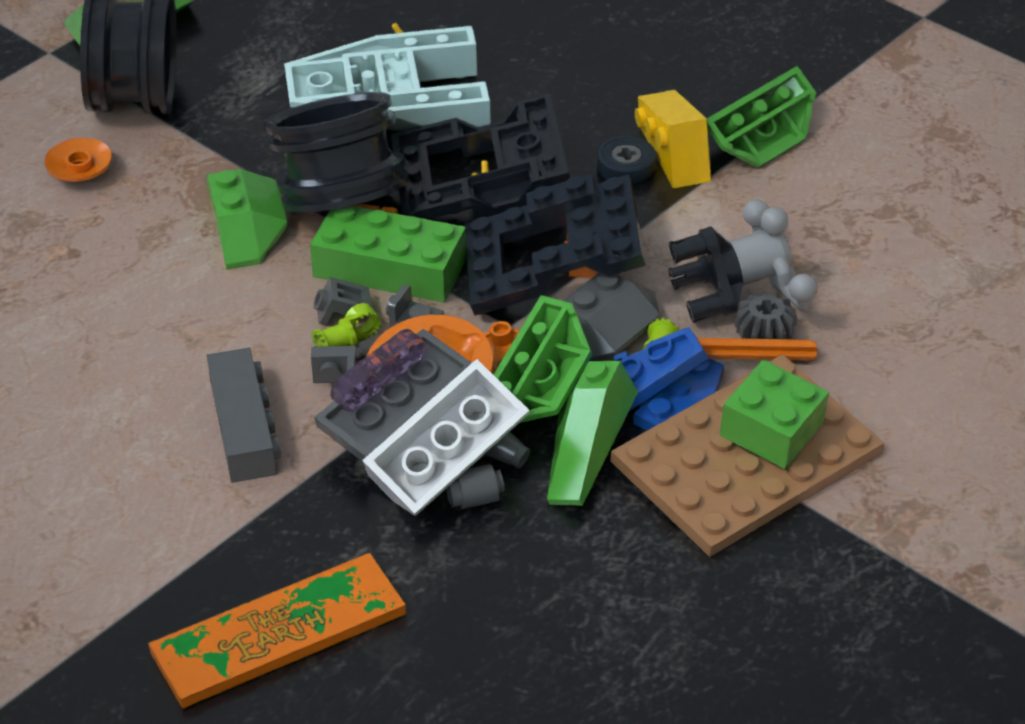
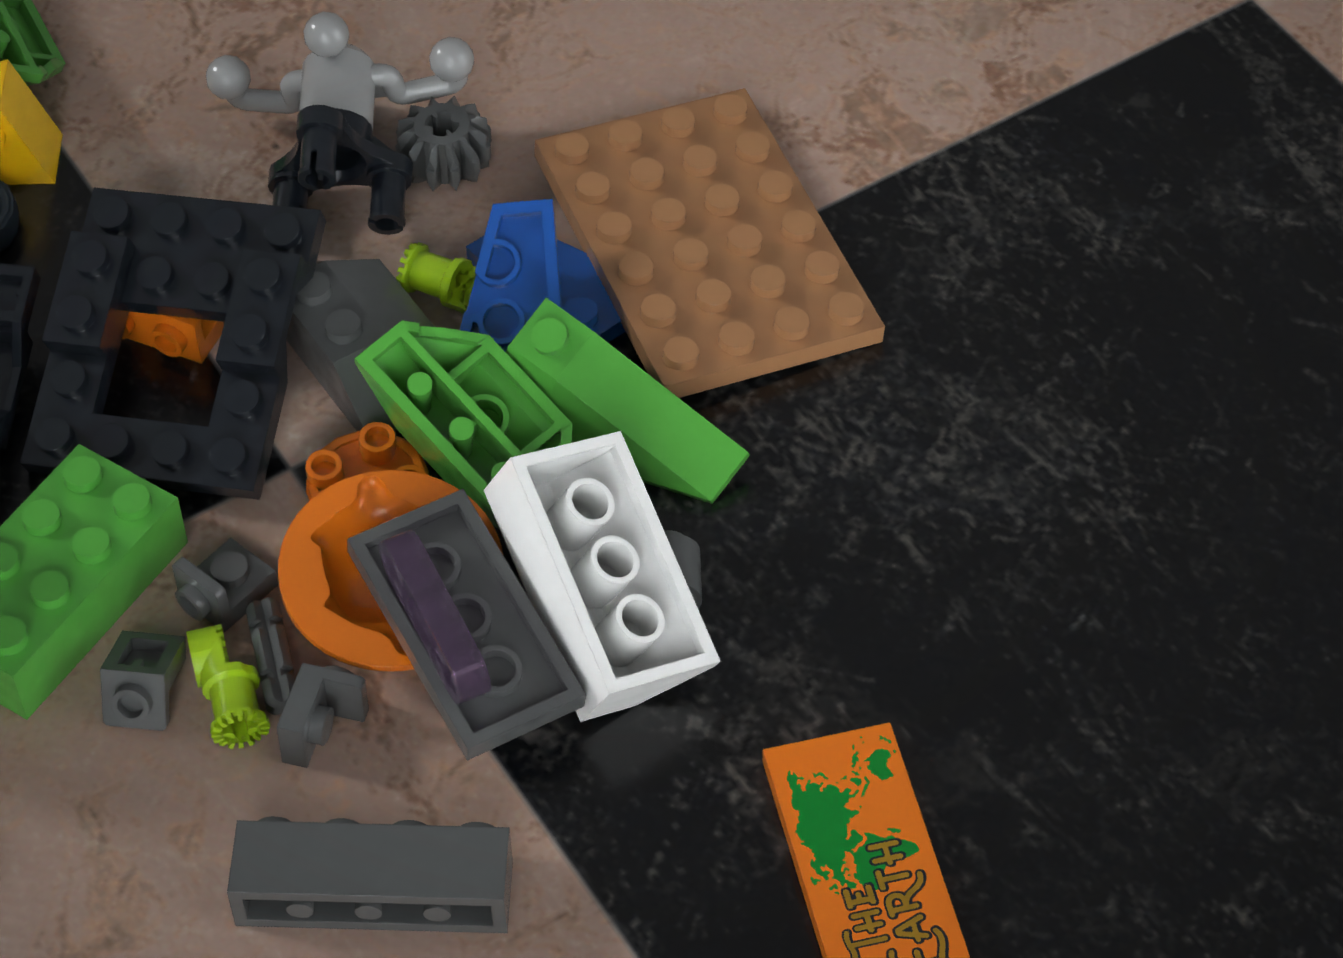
camera: 75 degrees left, 10 degrees up
(759, 348) = (499, 173): orange axle -> none
(774, 413) = (692, 167): bright green brick -> none

